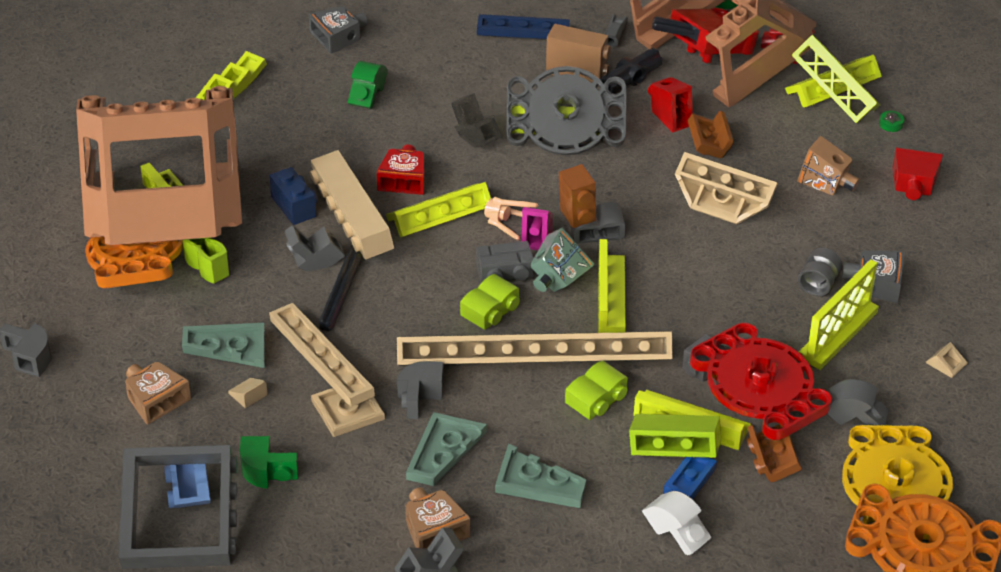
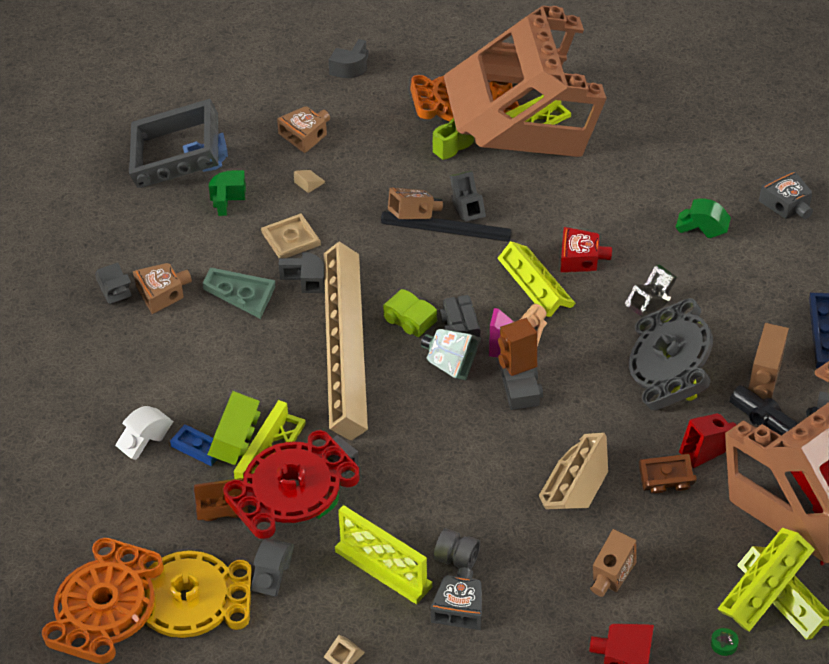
camera: 90 degrees right, 5 degrees up
(227, 342) = (359, 164): sand green wing -> none
(237, 75) = (685, 134): neon yellow slope -> none
(293, 195) = (535, 182): dark blue brick -> none
(320, 291) = (413, 203): none -> medium nougat torso
(322, 354) = (336, 213): tan plate -> none
(351, 205) = (522, 215): tan brick -> none
(534, 480) = (201, 347): sand green wing -> none
(596, 390) = (300, 383): lime brick -> none
(611, 291) = (430, 396): neon yellow fence -> none

